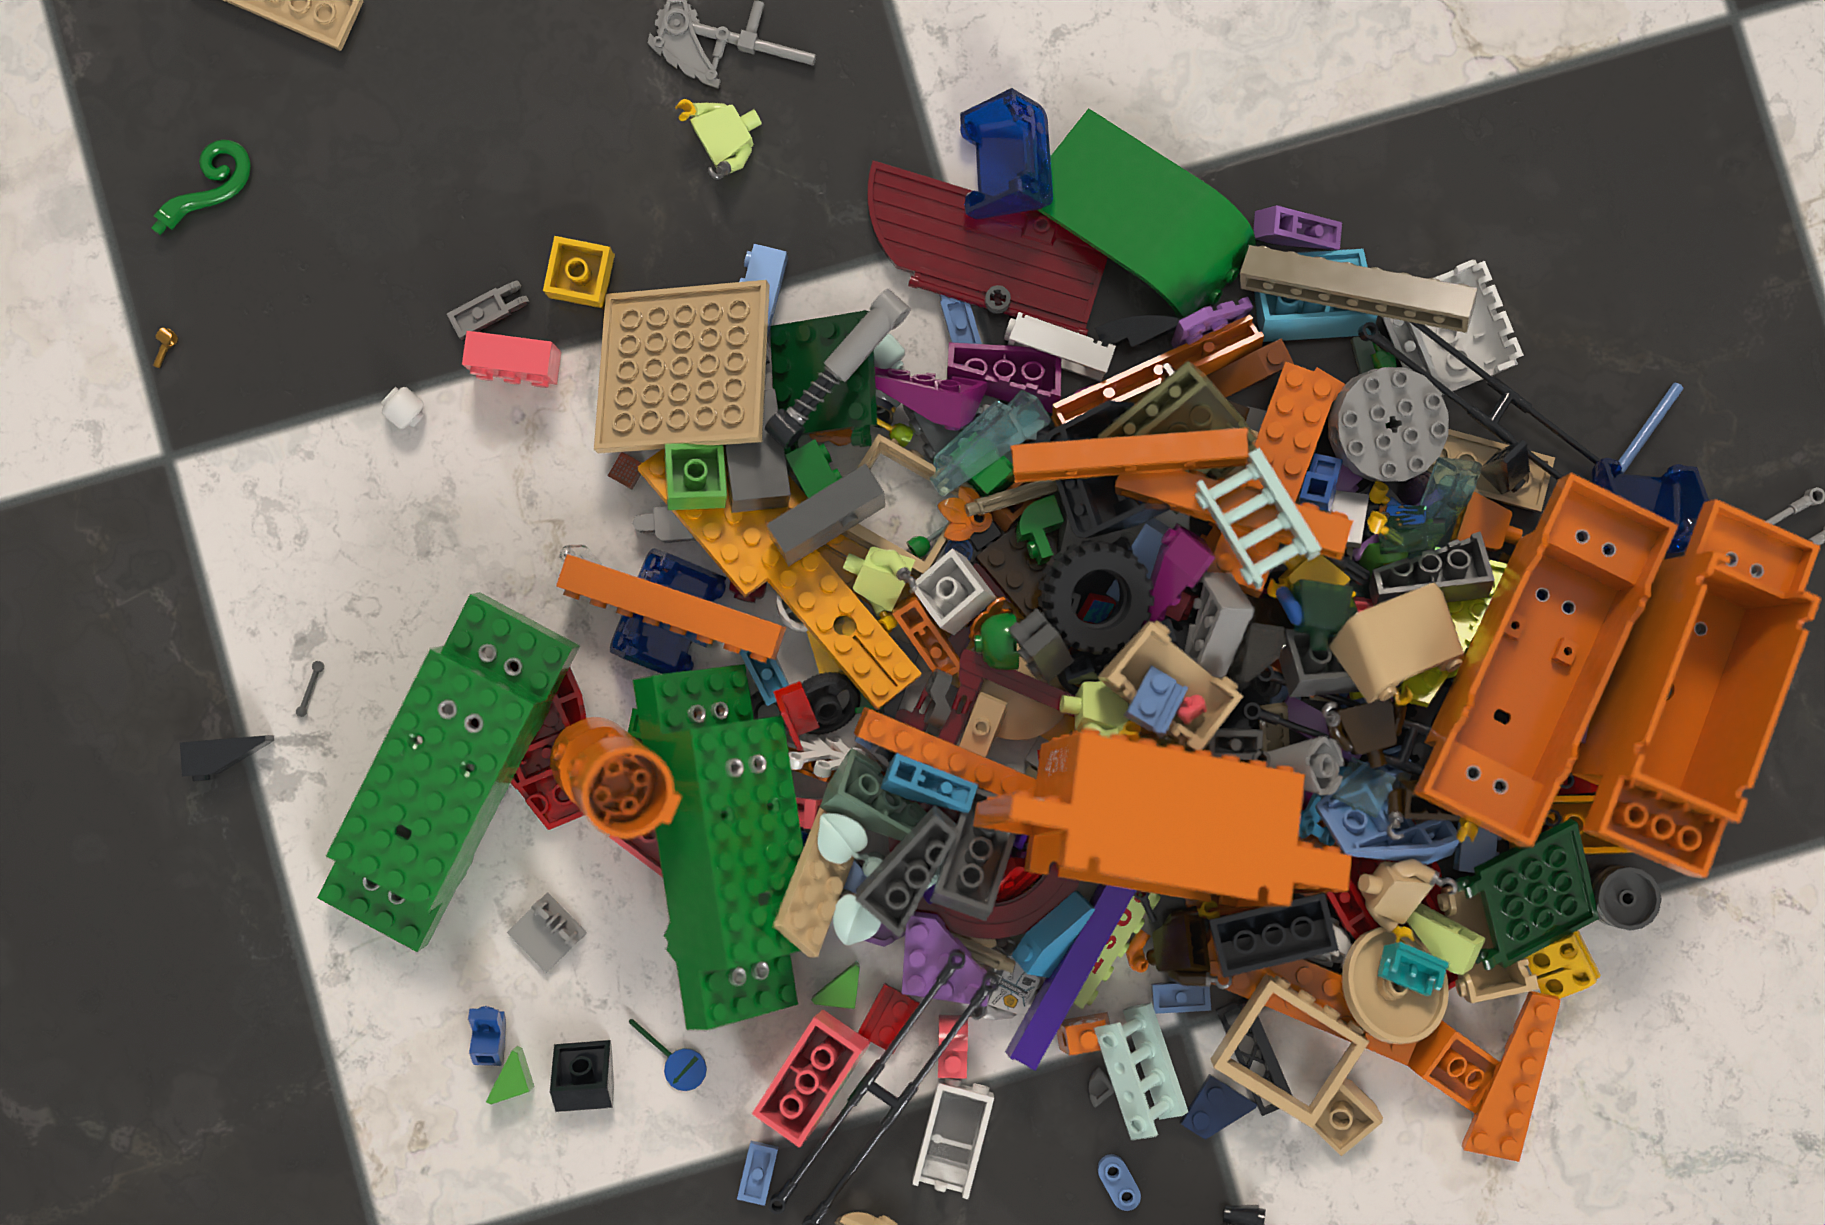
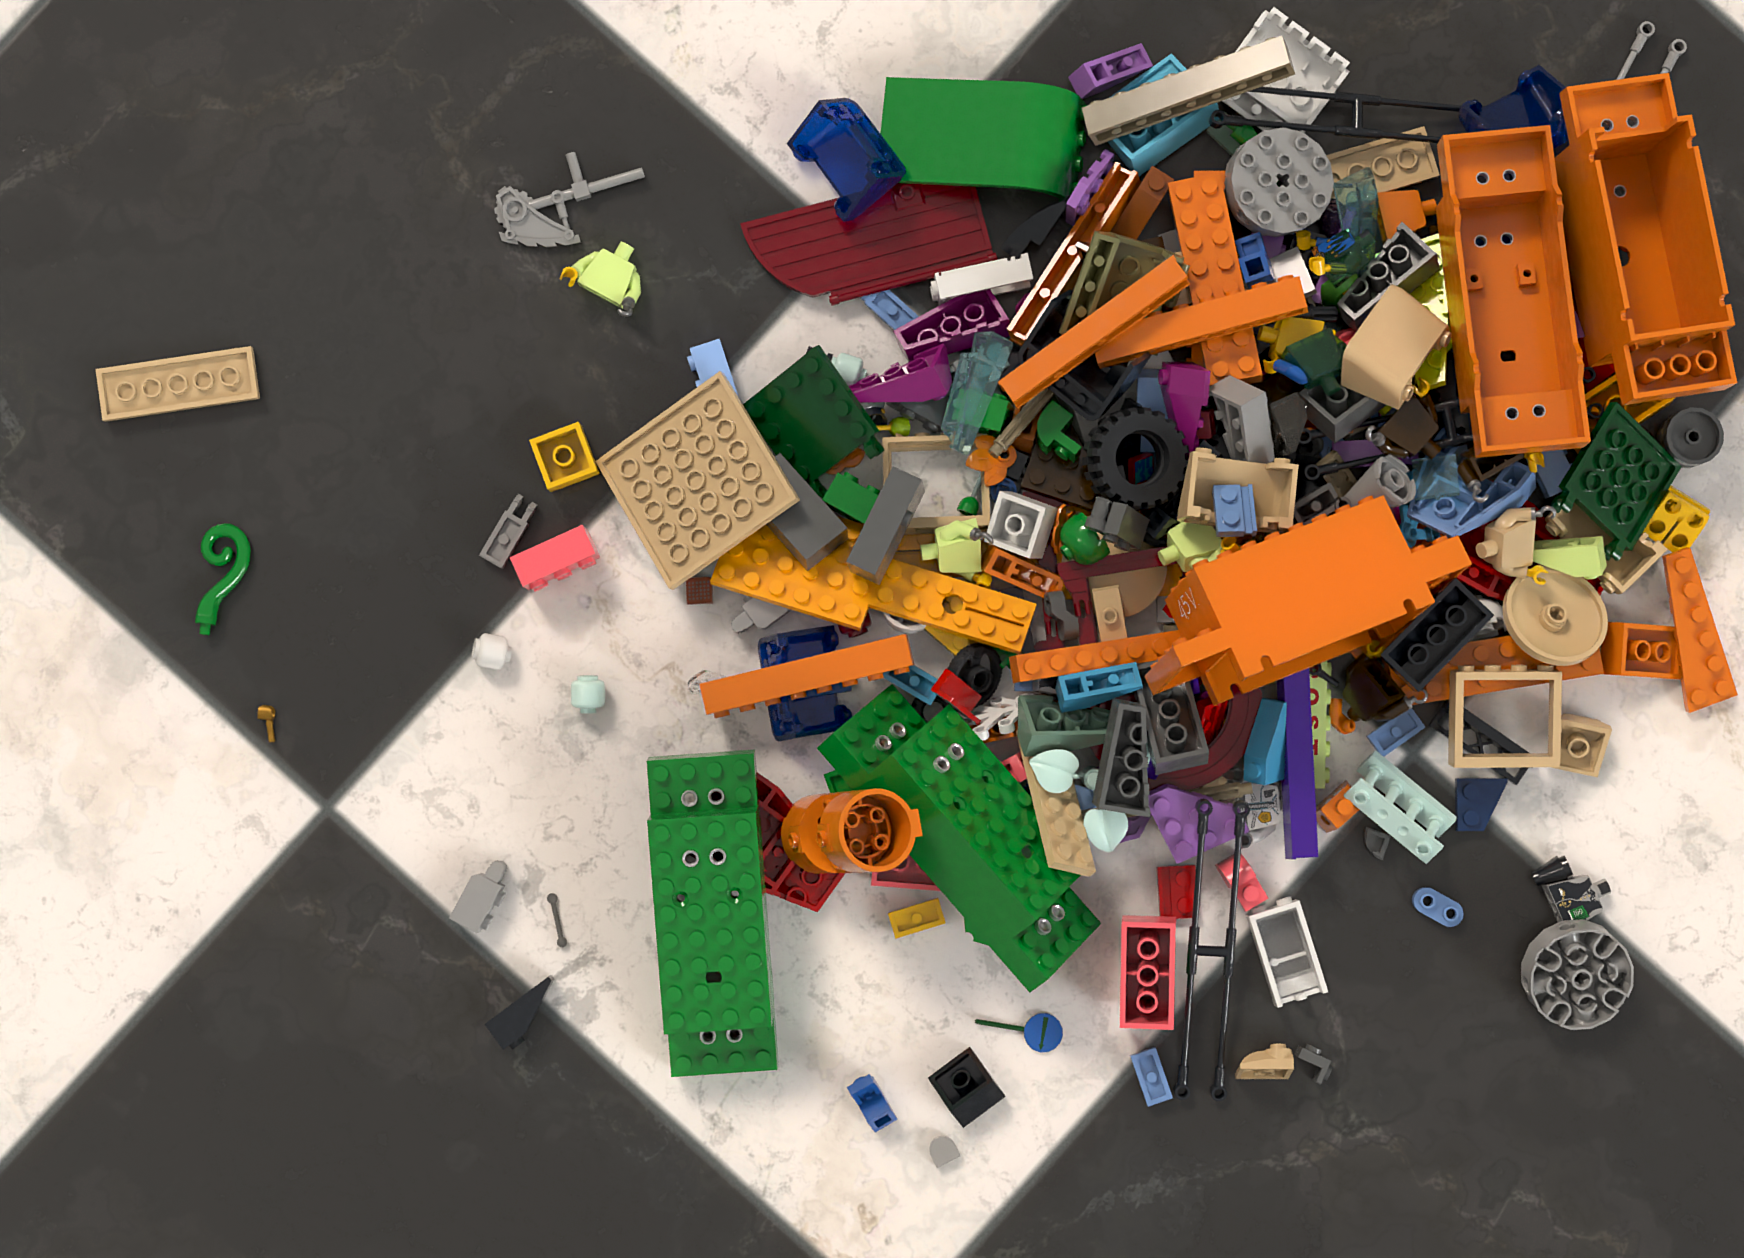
camera: 30 degrees left, 0 degrees up
(250, 625) = (480, 897): none -> light grey hinge
(465, 500) = (587, 693): none -> light aqua head
(513, 1079) = (914, 1124): bright green slope -> none
(526, 1120) = (943, 1150): none -> light grey tile
(546, 932) = (866, 993): light grey hinge -> none
(634, 892) = (916, 918): none -> yellow plate
(695, 476) = (763, 560): bright green brick -> none
(841, 990) = (1127, 892): bright green slope -> none
(884, 315) = (833, 345): piece -> none
(1004, 294) = (911, 265): dark grey bush -> none
(1191, 708) = (1264, 499): coral piece -> none
(1287, 518) = (1224, 294): light aqua fence -> none
(1412, 968) = (1559, 594): teal hinge -> none
(1508, 467) = (1392, 158): black slope -> none
(1650, 426) = (1483, 50): medium blue bar -> none

